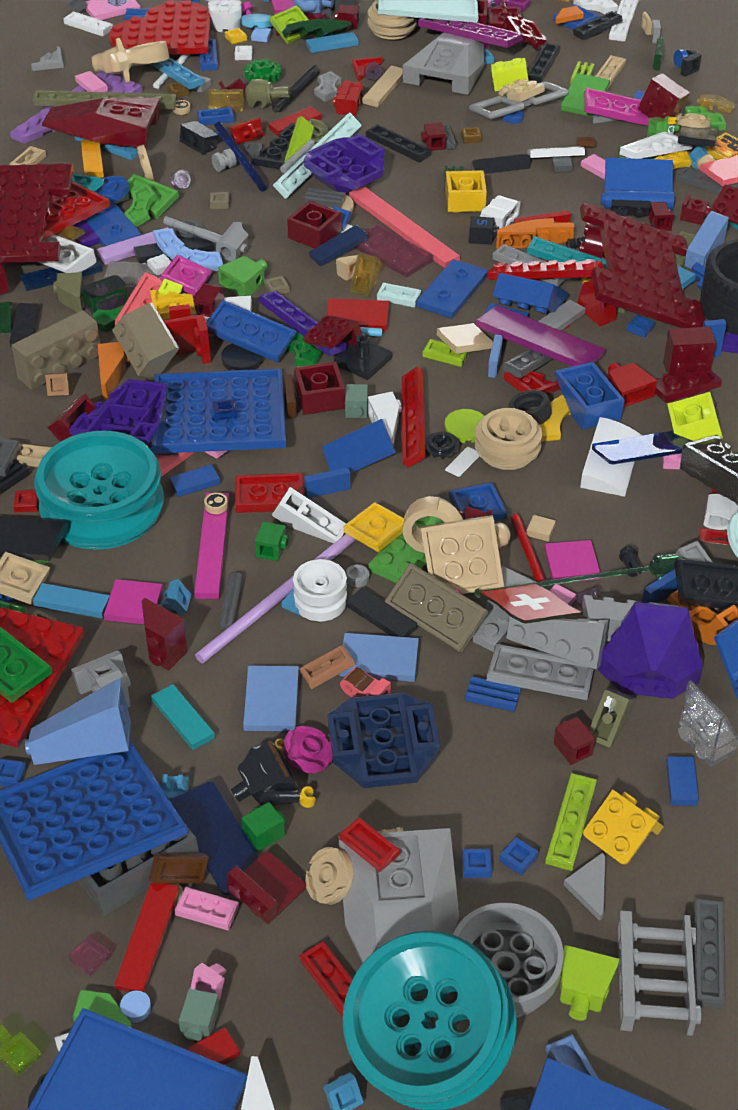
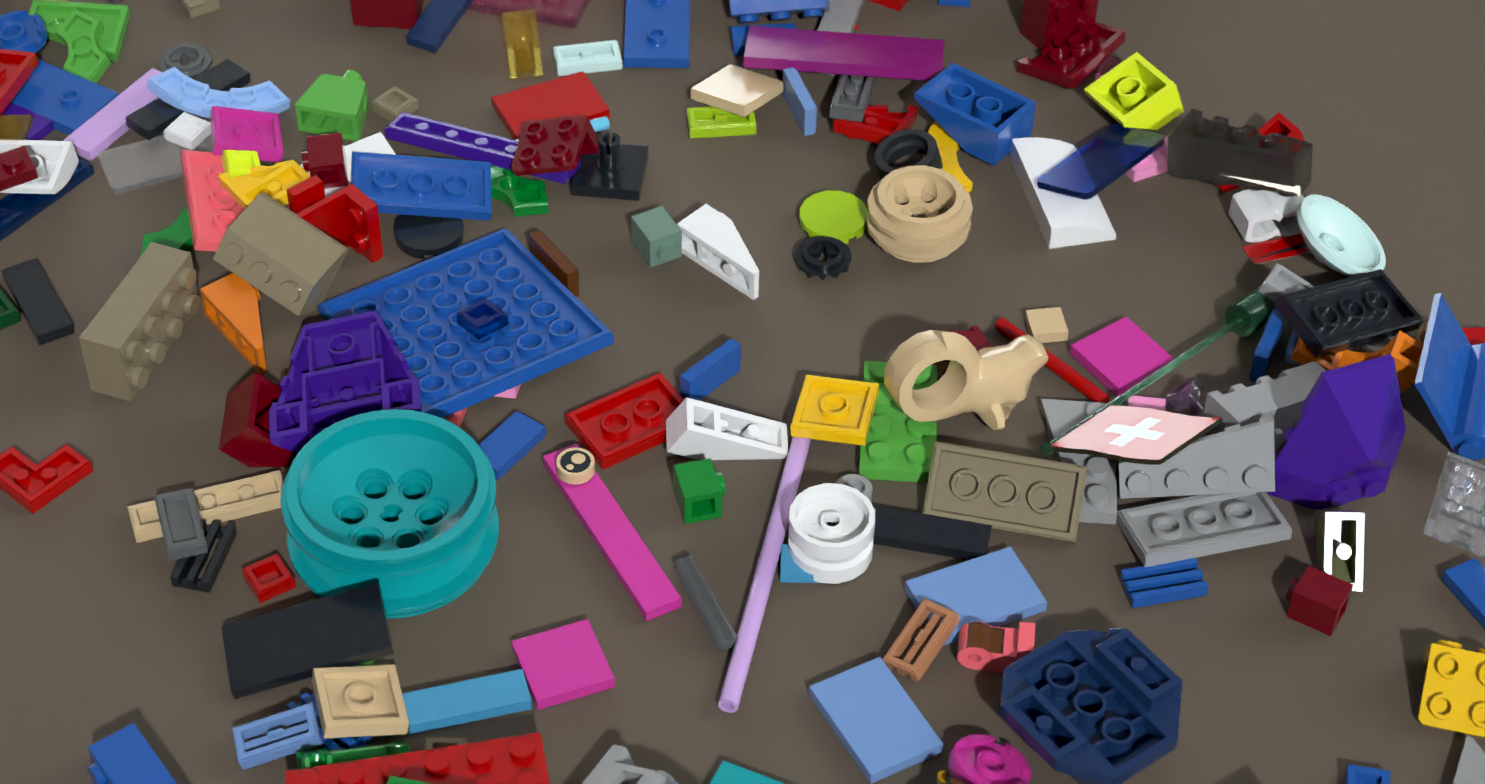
camera: 30 degrees left, 0 degrees up
(57, 384) = (176, 375): medium nougat tile -> none
(69, 290) = (76, 220): olive slope -> none
(105, 294) = (132, 202): piece -> none
(163, 635) = (658, 692): dark red slope -> none
(176, 597) = (628, 631): dark azure tile -> none
(229, 244) = (276, 60): light grey piece -> none
(319, 388) = (595, 235): dark red brick -> none
(346, 266) = (484, 40): tan slope -> none
(359, 448) = (720, 305): blue tile -> none
(413, 417) = (757, 231): red plate -> none
(463, 462) = (866, 271): white sticker -> none
(464, 554) = (1003, 398): tan plate -> none
(479, 497) = (933, 311): blue tile -> none
(571, 822) = (1394, 712): lime tile -> none
(629, 557) = (1195, 323): black pin -> none
(631, 383) = (1012, 70): red torso -> none

